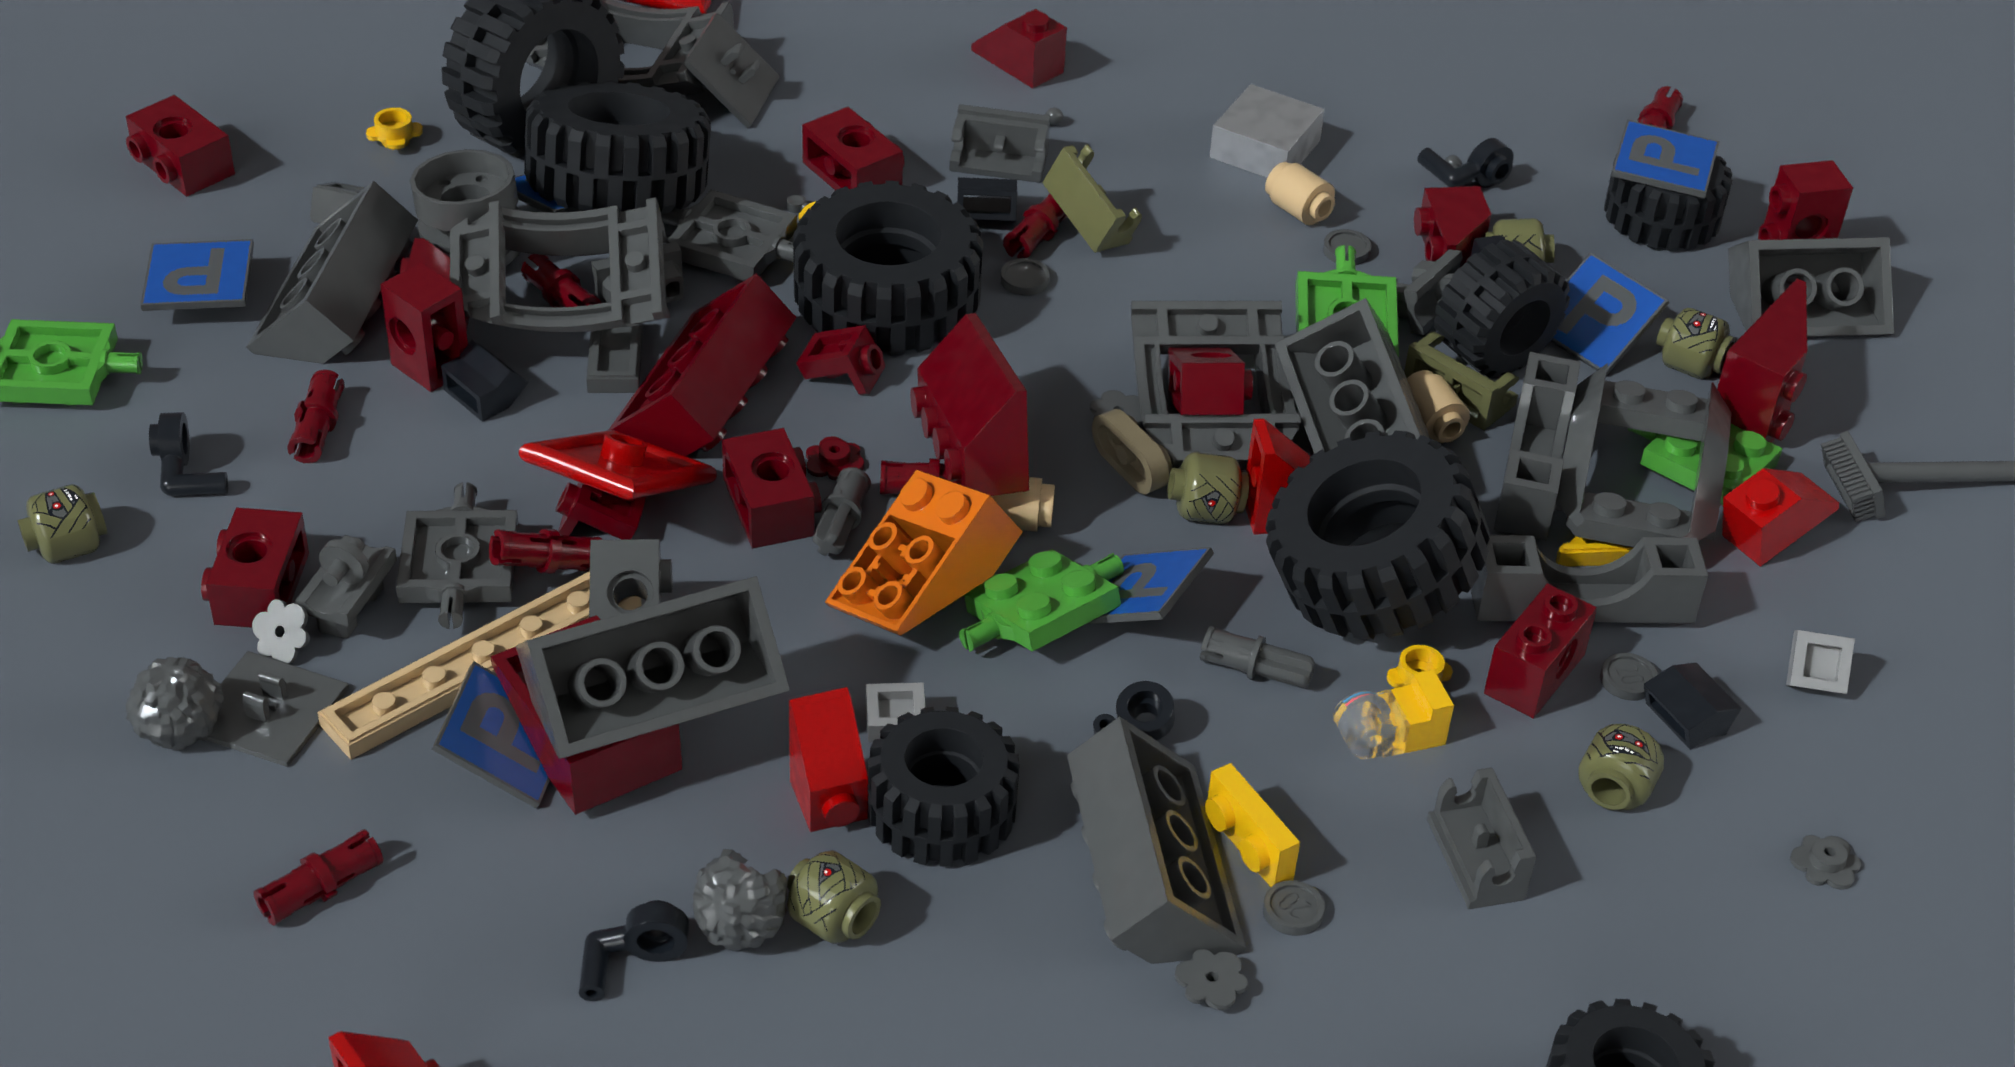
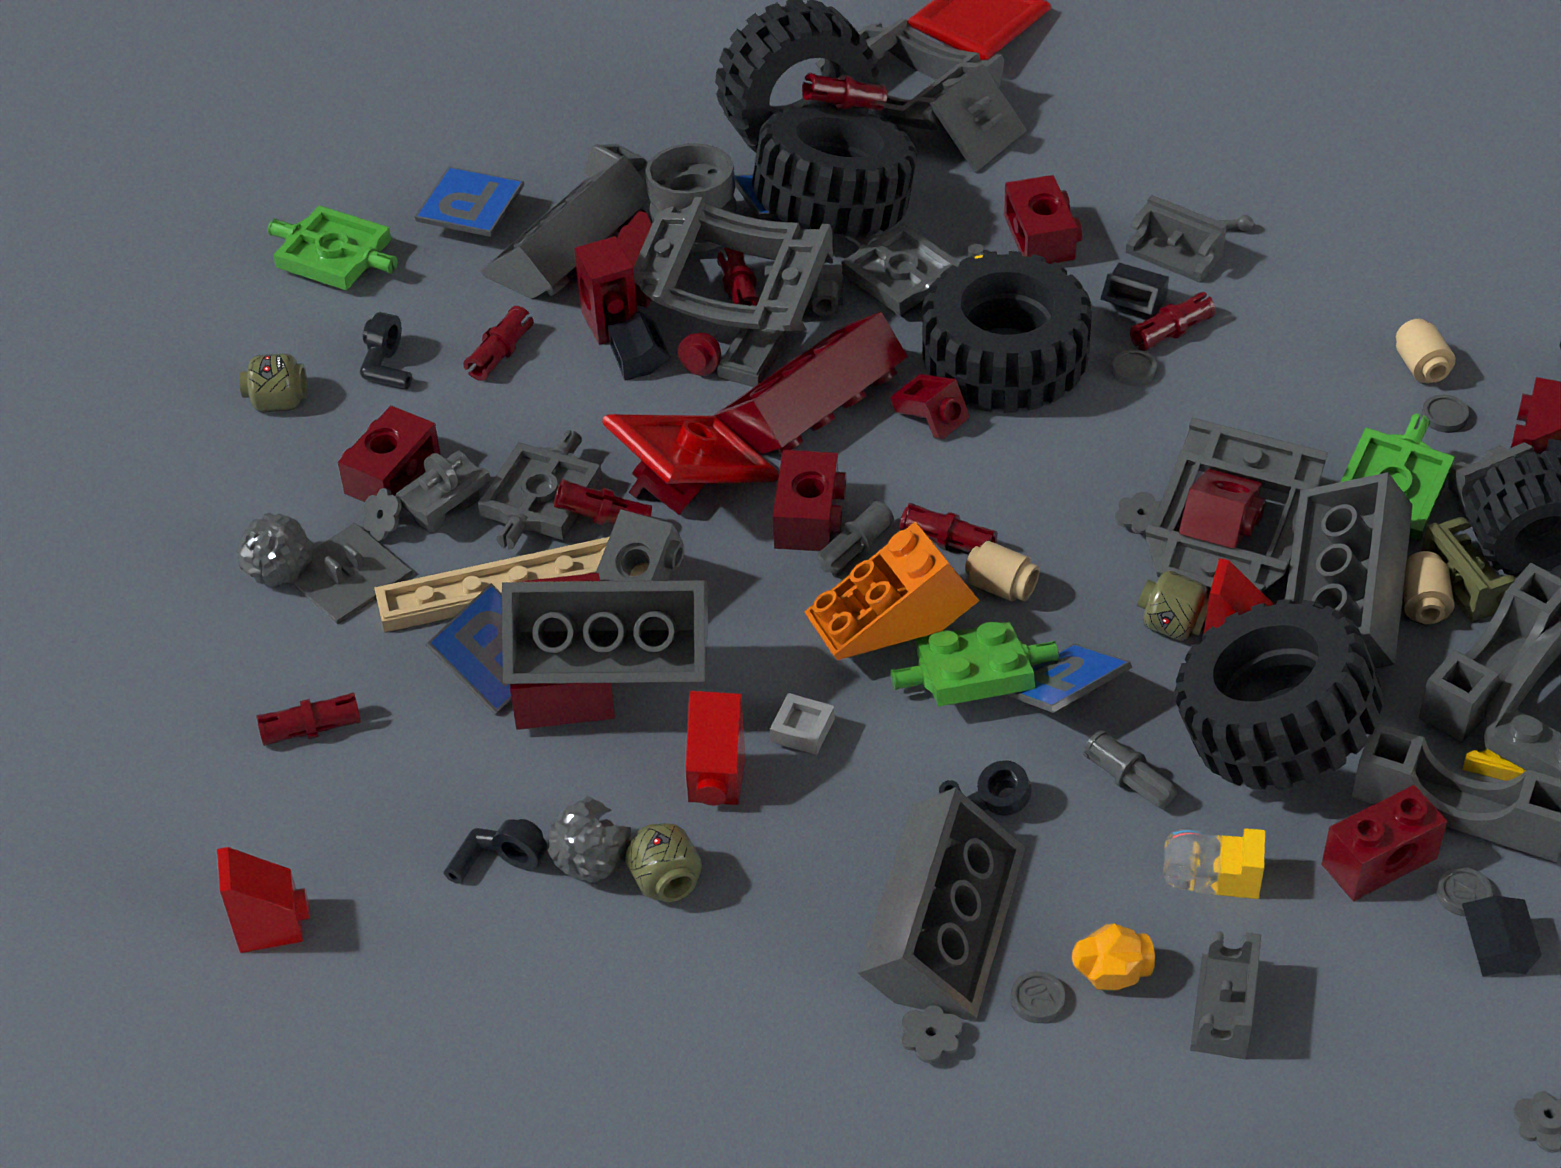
camera: 30 degrees right, 5 degrees up
(179, 145) = (512, 86): dark red brick -> none
(394, 128) = (684, 108): yellow plate -> none
(560, 371) = (699, 353): none -> dark red plate
(596, 63) = (844, 92): none -> dark red pin
(833, 457) = (882, 487): dark red plant -> none
(940, 820) = (798, 830): black tyre -> none
(974, 411) = (990, 487): dark red slope -> none
(1026, 48) = (1252, 153): dark red slope -> none
(1086, 201) = (1218, 313): olive hinge -> none
(1131, 451) = (1125, 547): dark tan plate -> none
(1251, 826) = (1035, 934): yellow plate -> none
(1265, 130) = (1429, 283): flat silver piece -> none
(1354, 839) = (1114, 957): none -> light orange rock
(1418, 659) = (1271, 817): yellow plate -> none
(1621, 767) = (1396, 972): olive head -> none

